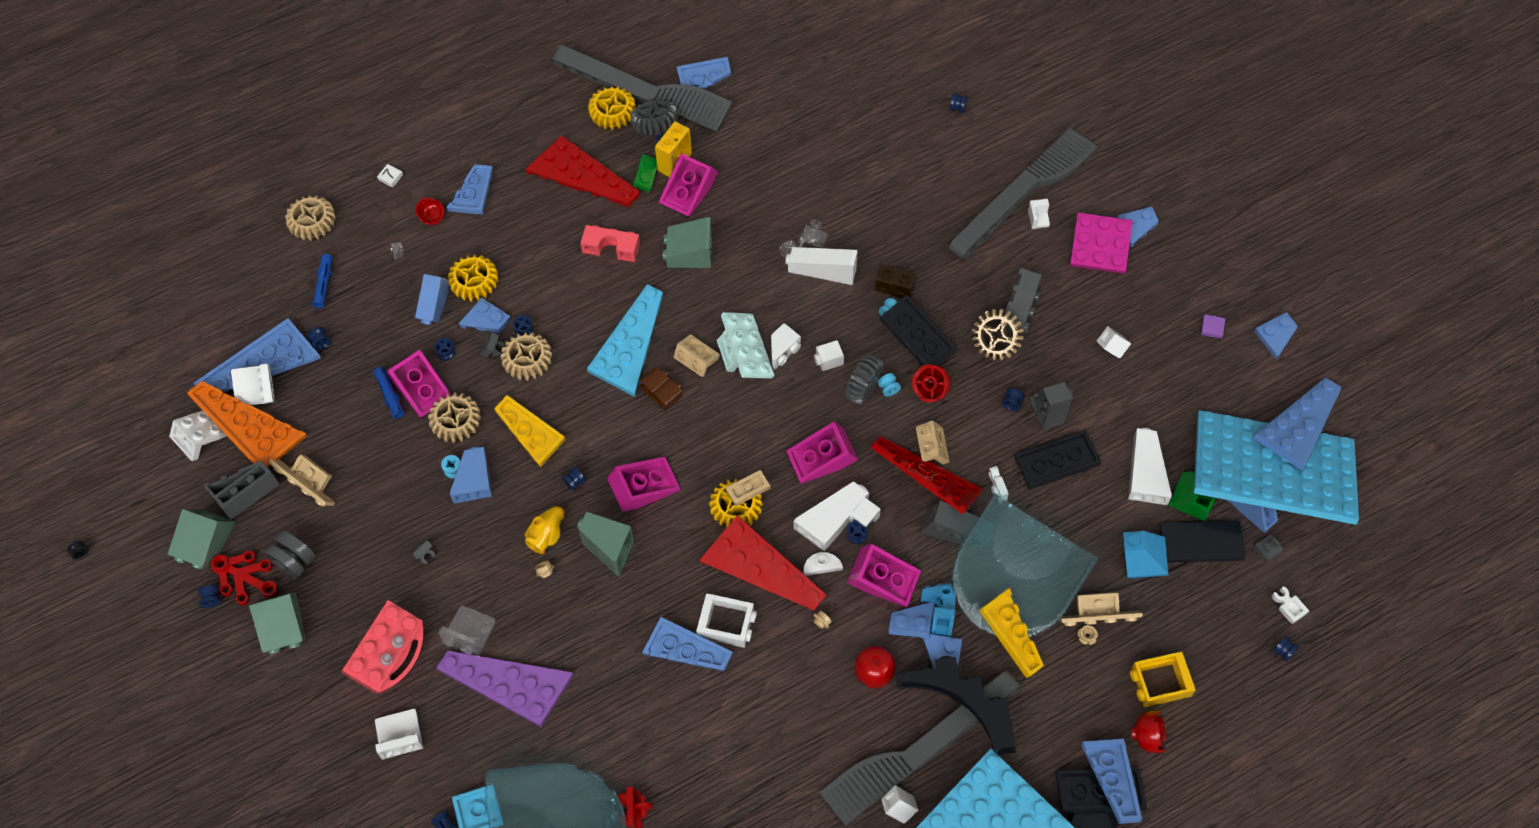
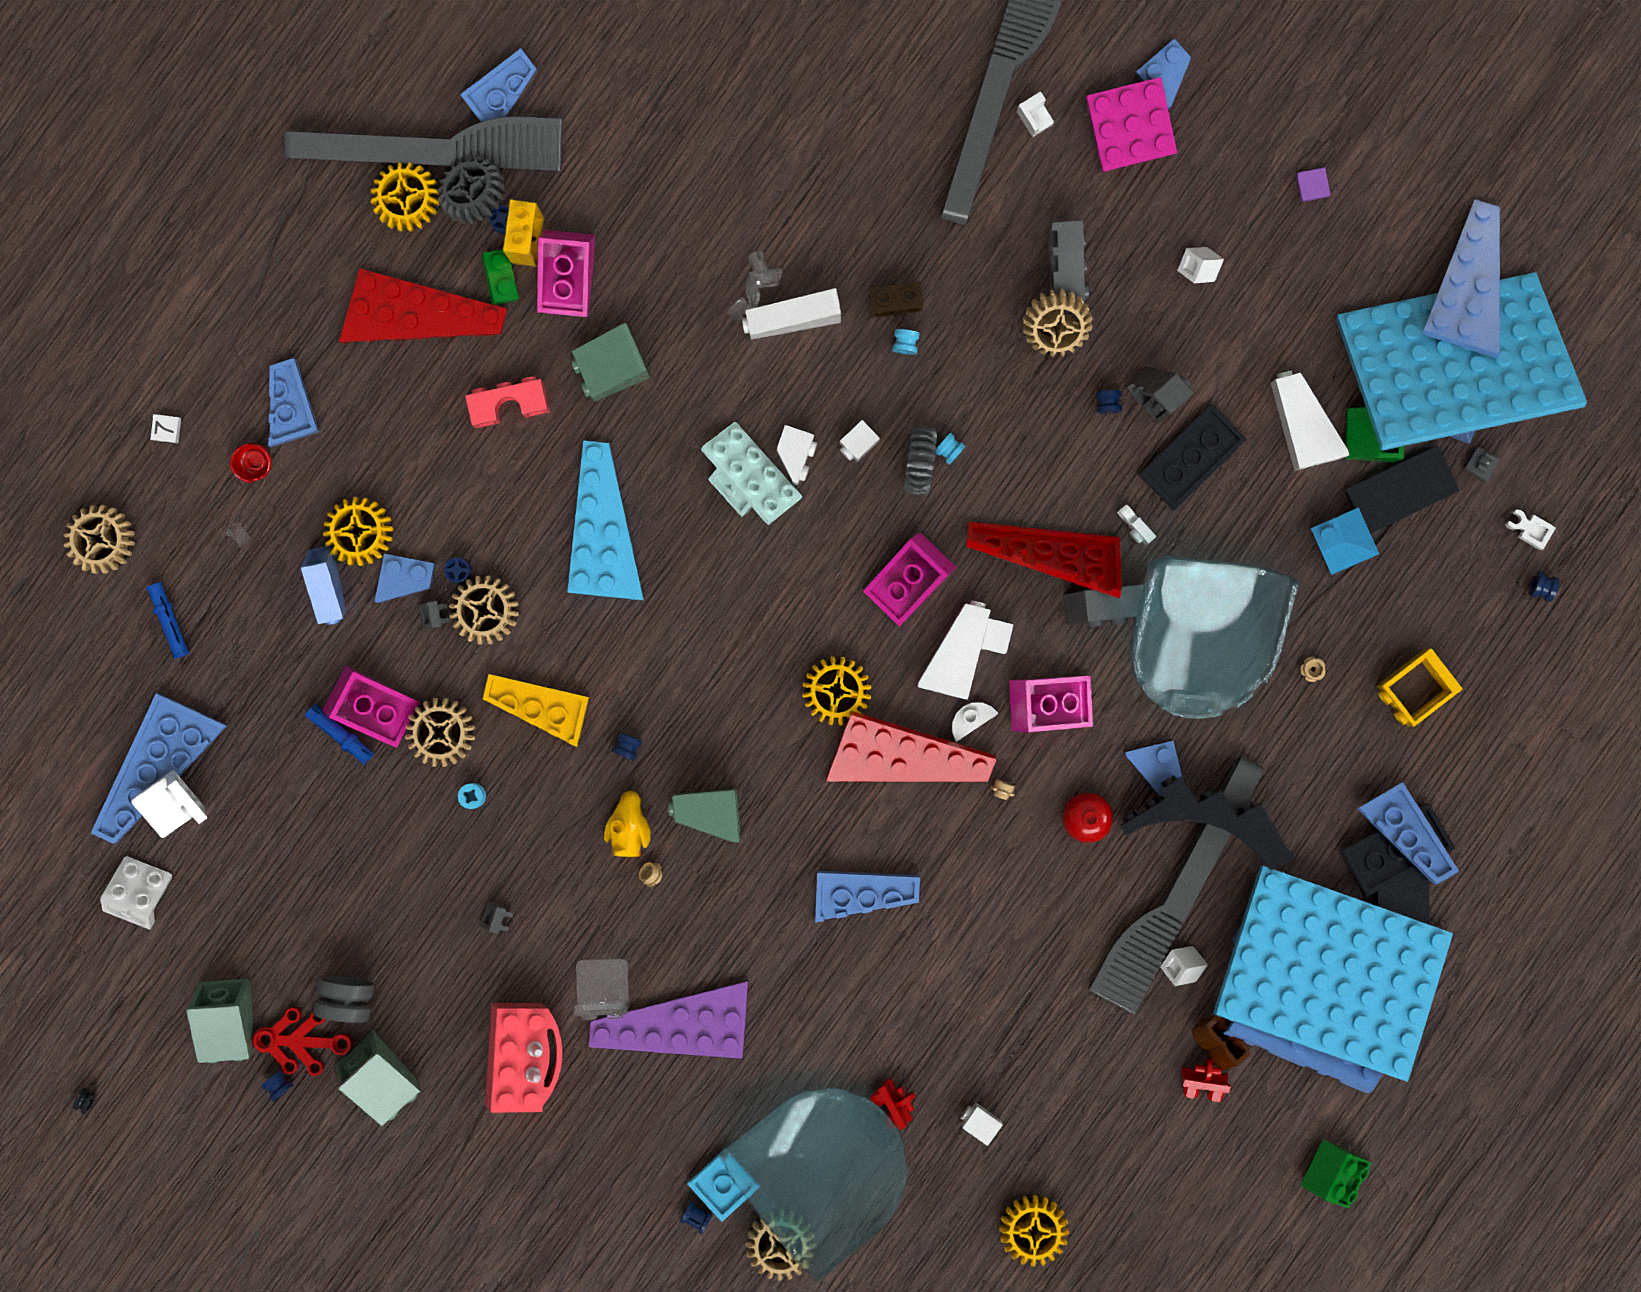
camera: 25 degrees left, 25 degrees up
(242, 489) = (236, 943): dark grey wedge -> none
(250, 429) = (205, 862): orange wing -> none
(307, 476) = (303, 889): tan bracket -> none
(319, 338) = (211, 702): dark blue wheel -> none
(398, 734) = (588, 1141): white bracket -> none
(444, 344) = (371, 645): dark blue wheel -> none
(472, 477) = (503, 797): medium blue slope -> none
(642, 483) = (713, 713): dark pink slope -> none
(661, 388) = (673, 578): reddish brown brick -> none
(695, 355) = (693, 512): tan bracket -> none
(724, 637) = (924, 845): white window -> none
(748, 488) = (846, 672): tan plate -> none
(856, 528) = (999, 662): dark blue wheel -> none
(913, 621) = (1108, 743): medium blue wing -> none
(918, 333) = (956, 362): black tile -> none
(931, 383) = (1003, 428): red cylinder -> none
(932, 442) = (1036, 506): tan bracket -> none
(945, 613) = (1147, 727): dark azure tile -> none
(1007, 625) = (1227, 709): yellow wing -> none
(1099, 607) = (1316, 633): tan bracket -> none
(1150, 732) = (1428, 759): red cylinder -> none
(1276, 333) = (1395, 160): medium blue wing -> none

